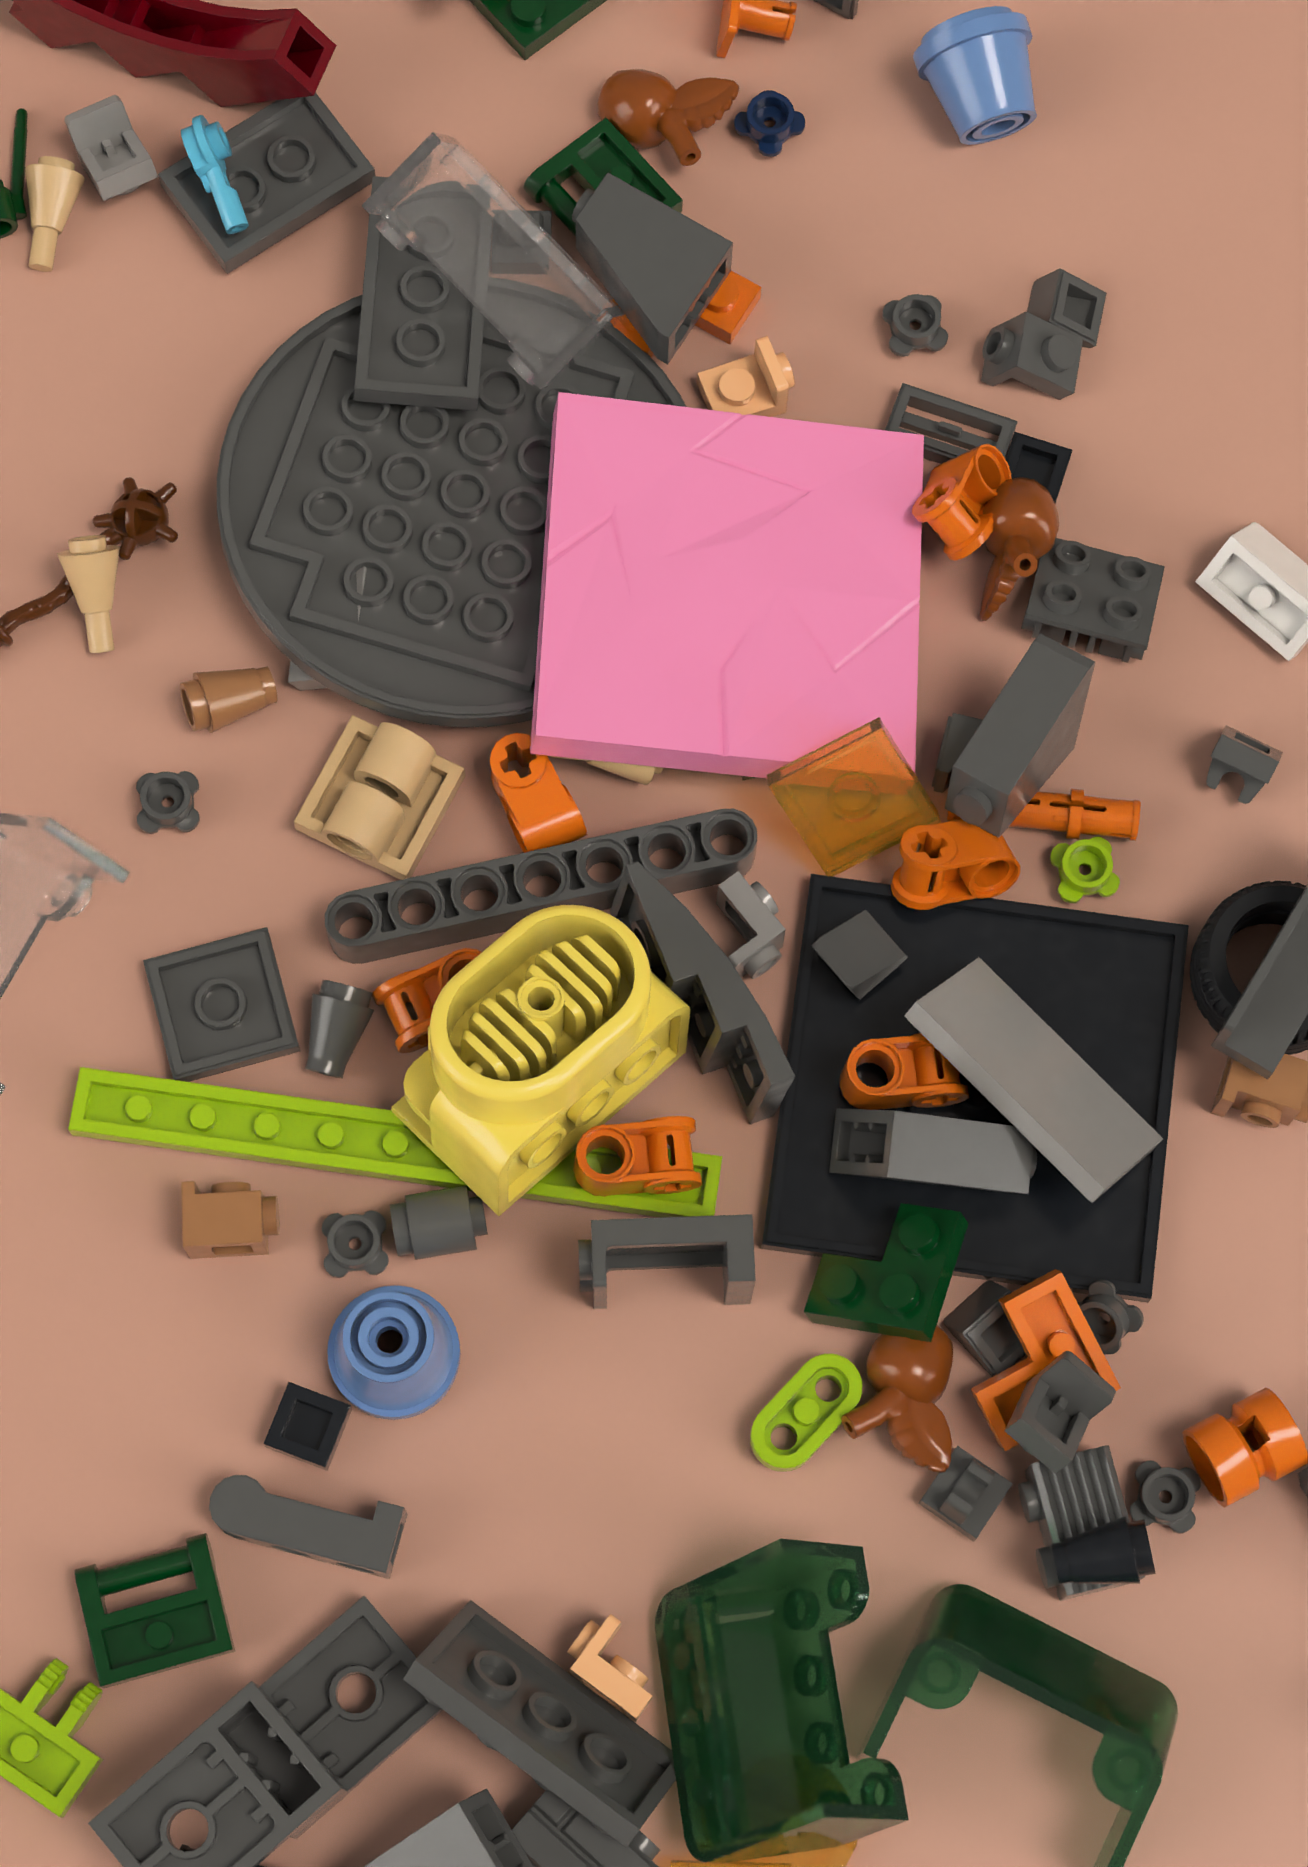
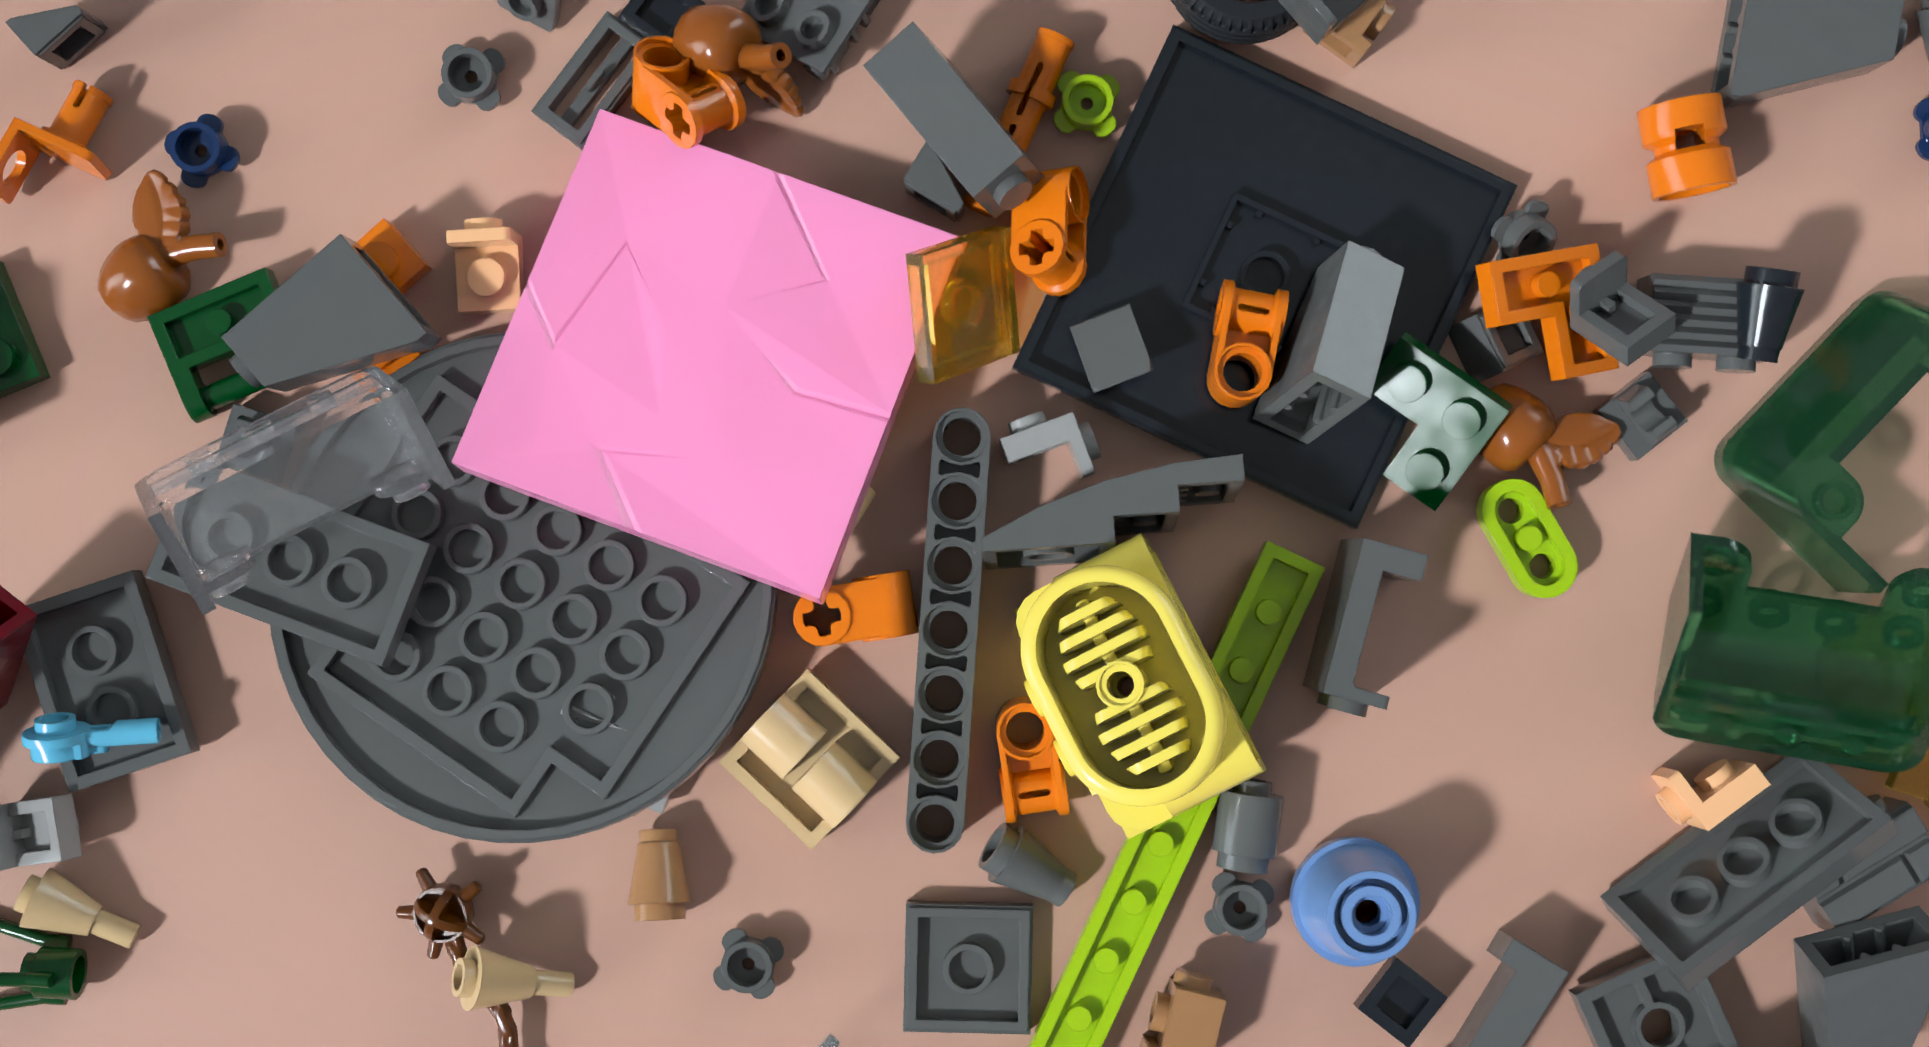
camera: 65 degrees left, 15 degrees up
(643, 1157) = (1256, 618): orange piece -> none
(1034, 1078) = (1296, 224): light grey tile -> none
(1182, 1488) = (1717, 232): dark grey plate -> none

